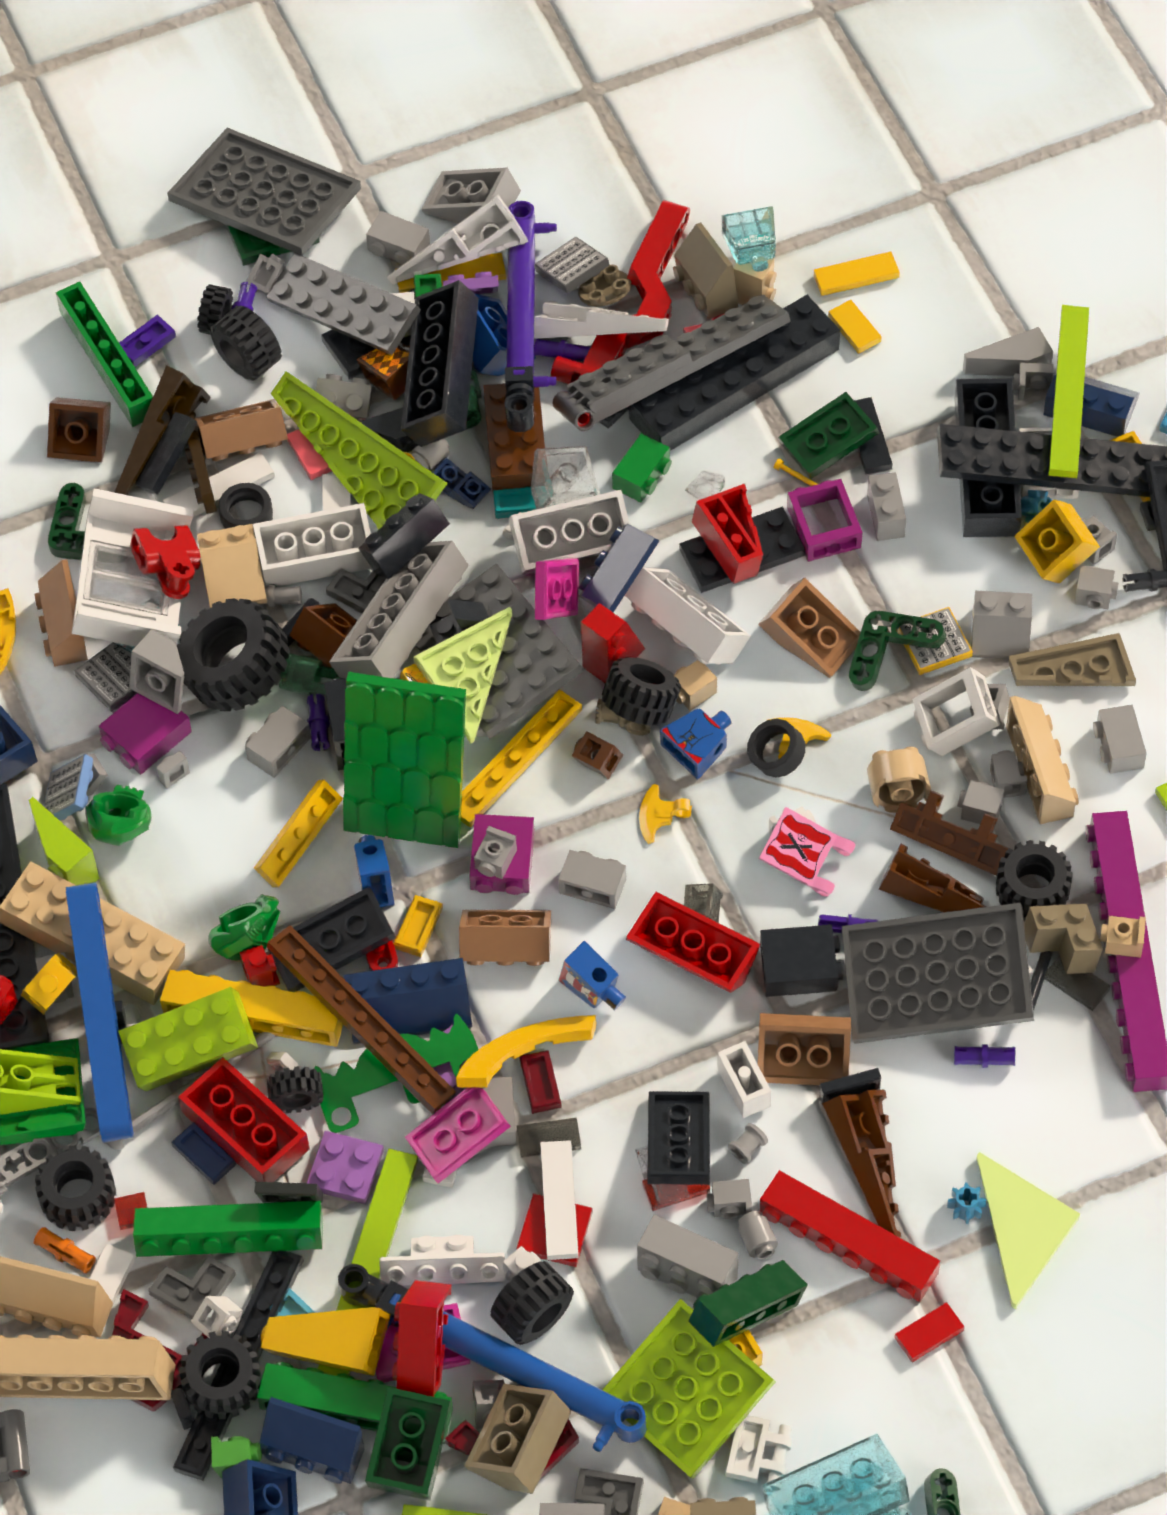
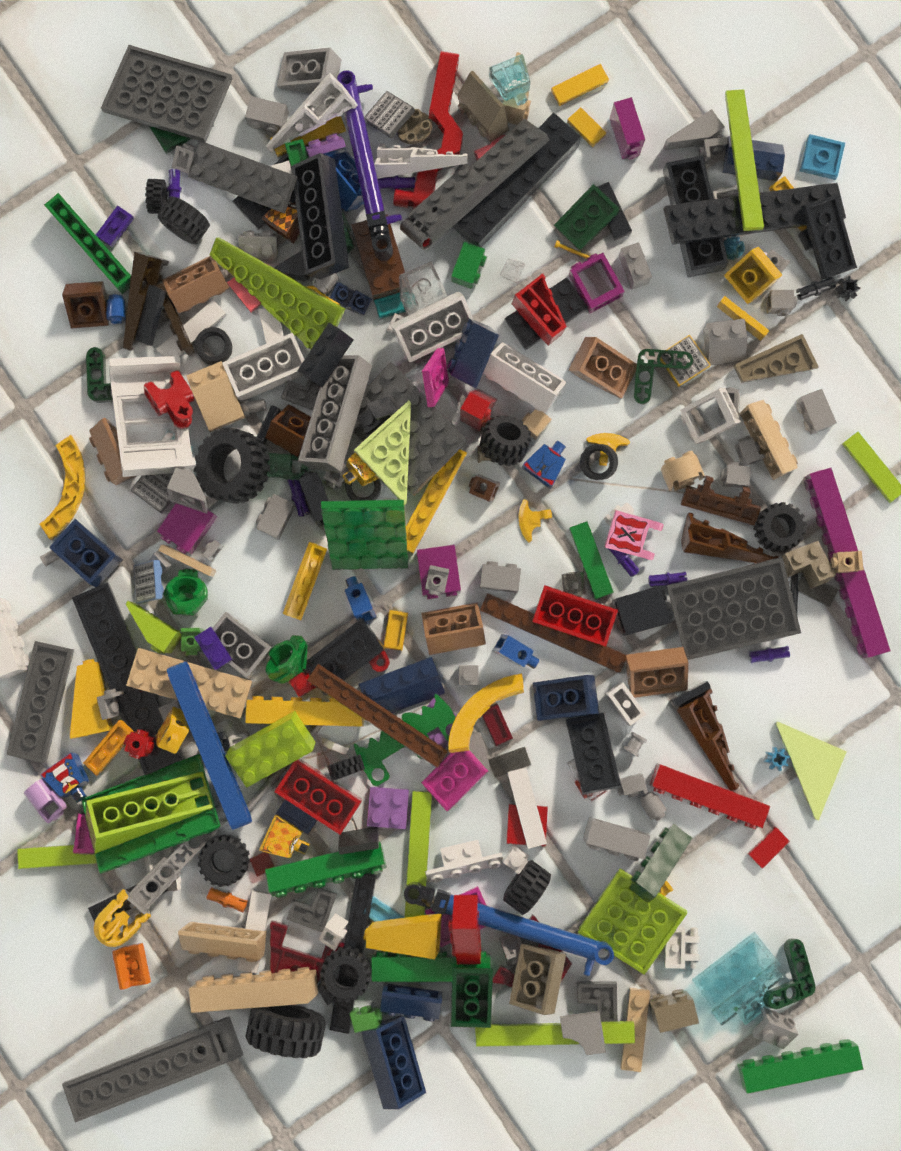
camera: 15 degrees left, 25 degrees up
(108, 1425) = (286, 1030): none -> black tyre
(112, 880) = (186, 634): none -> bright green brick
(118, 441) = (116, 308): none -> blue brick
(132, 775) = (187, 560): none -> tan tile
(140, 885) = (213, 648): none -> dark purple plate
(173, 1177) = (283, 839): none -> torso
(175, 896) = (242, 644): none -> light grey brick
(512, 1000) = (468, 674): none -> light grey brick
(656, 1058) = (565, 697): none -> dark blue slope
(658, 973) = (523, 620): none -> reddish brown plate
(737, 881) = (591, 560): none -> green tile
(787, 889) = (626, 562): none -> dark purple axle
(910, 331) = (627, 128): none -> magenta brick
(1042, 607) = (736, 312): none -> yellow tile

